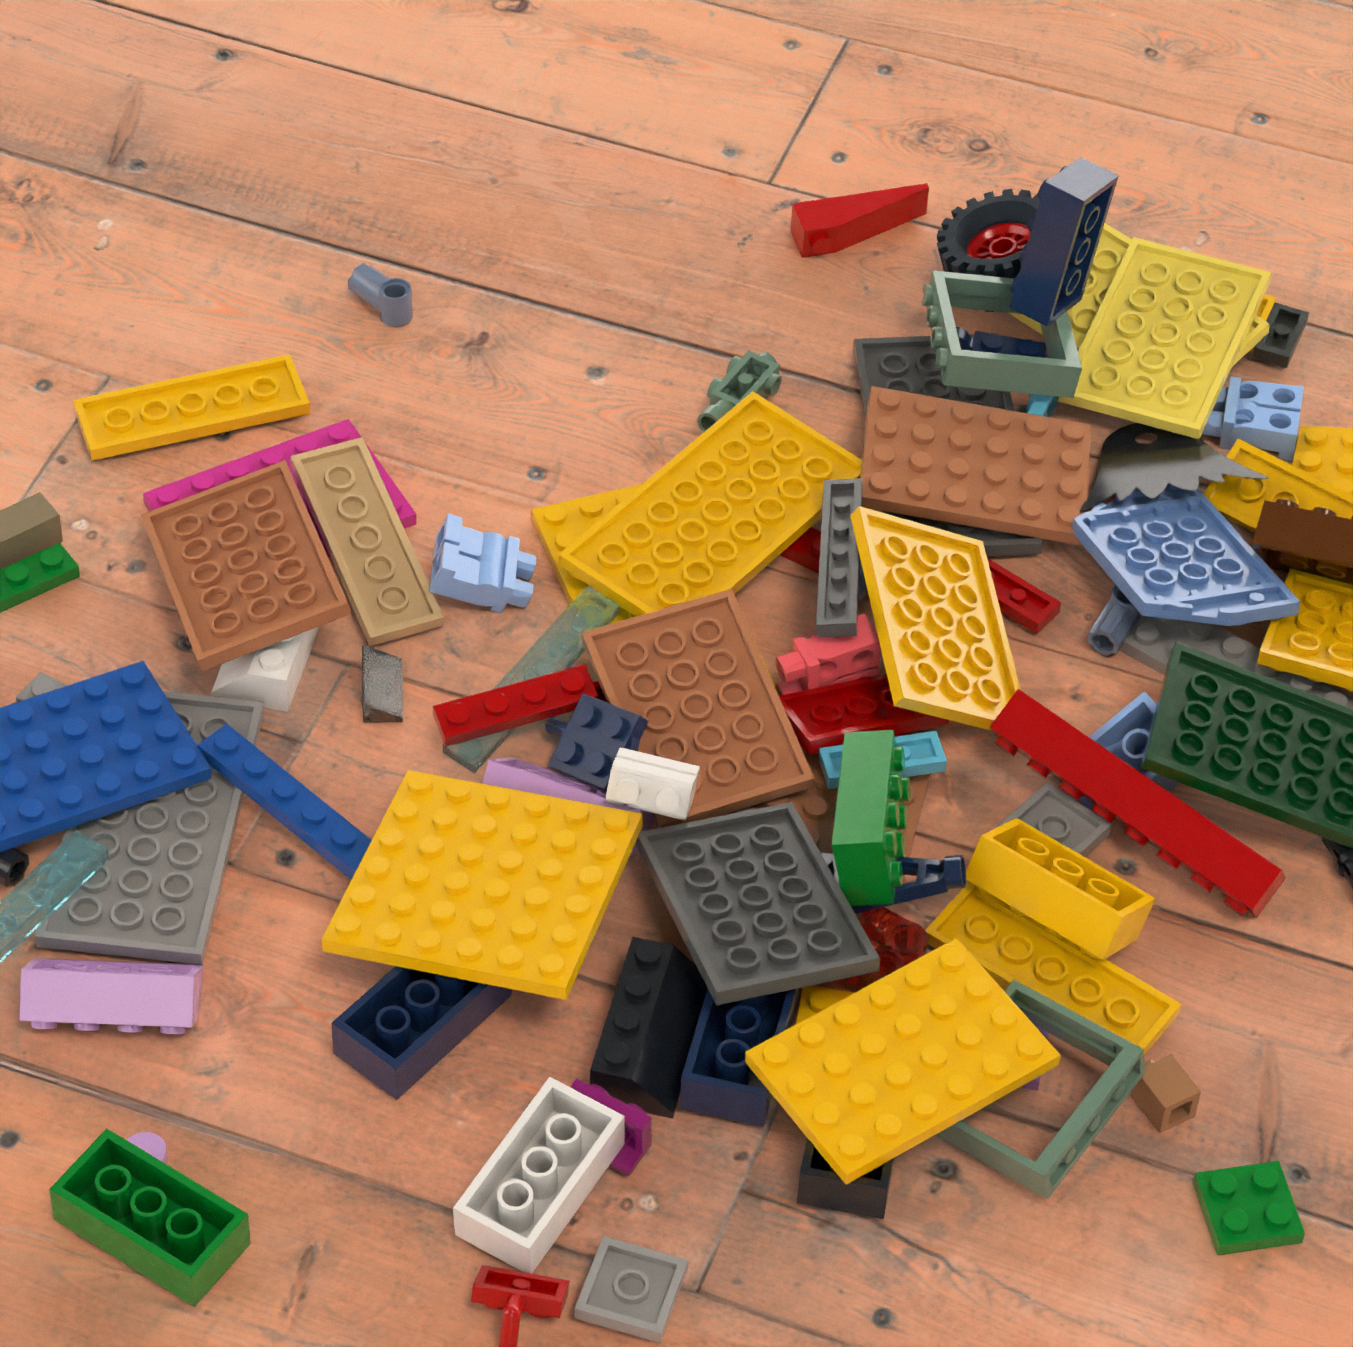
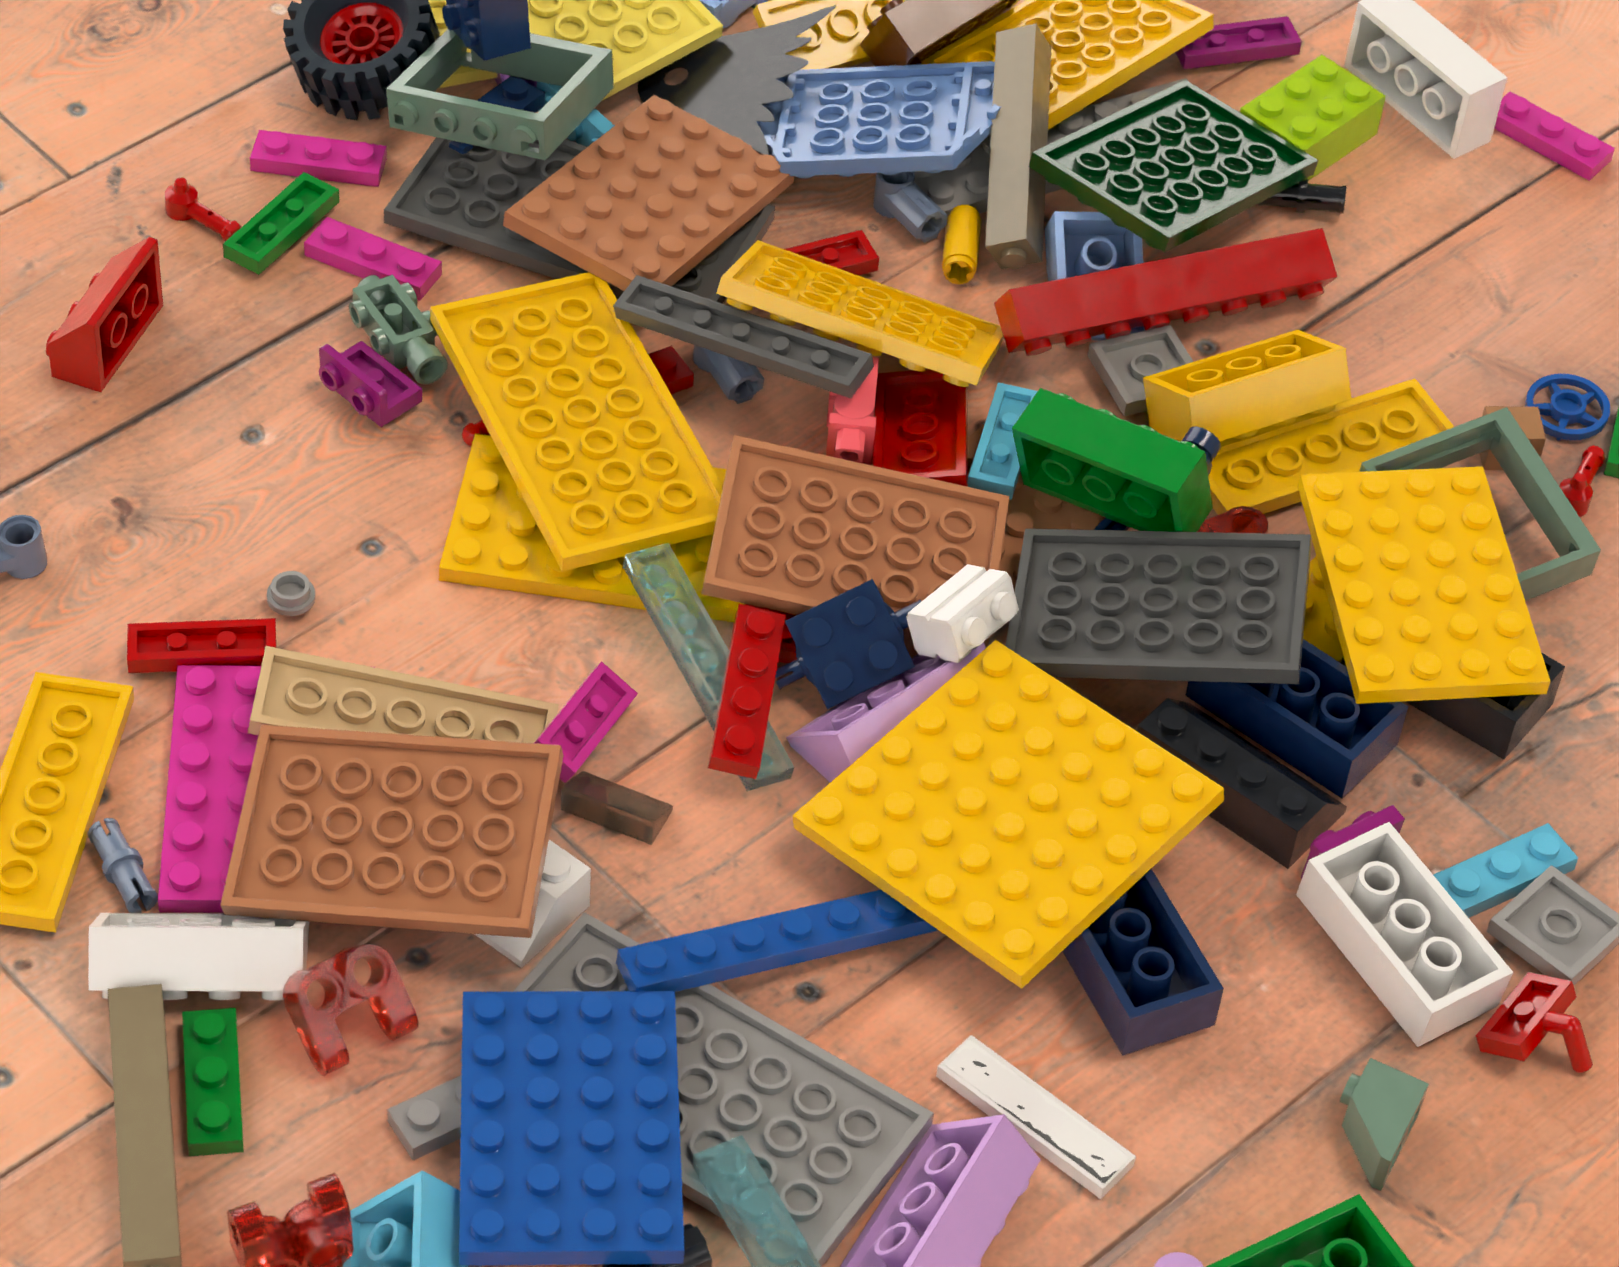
camera: 65 degrees left, 0 degrees up
(78, 606) = (342, 991): none -> clear red piece
(105, 525) = (196, 953): none -> white slope
(163, 465) = (122, 865): none -> sand blue pin
(244, 1021) = (1037, 1115): none -> white tile
(356, 1227) = (1380, 1116): none -> sand green slope
(374, 423) = (213, 642): none -> red plate
(432, 633) = (587, 717): none -> dark pink plate
(454, 446) = (290, 594): none -> light grey plate
(480, 567) = (508, 636): light blue hips -> none
(629, 252) = (108, 318): none -> red slope
(662, 1230) = (1505, 869): none -> medium azure plate
(676, 401) = (368, 382): none -> magenta bracket
(783, 245) = (183, 205): none -> red piece
(802, 296) = (281, 223): none -> green plate
(812, 359) = (371, 255): none -> dark pink plate
(843, 221) = (193, 140): red slope -> none
(890, 290) = (318, 157): none -> dark pink plate
(1102, 669) = (961, 244): none -> yellow piece
(1140, 1162) = (1578, 487): none -> red piece
(1231, 637) = (1019, 128): none -> brick
(1248, 1128) = (1569, 406): none -> blue wheel

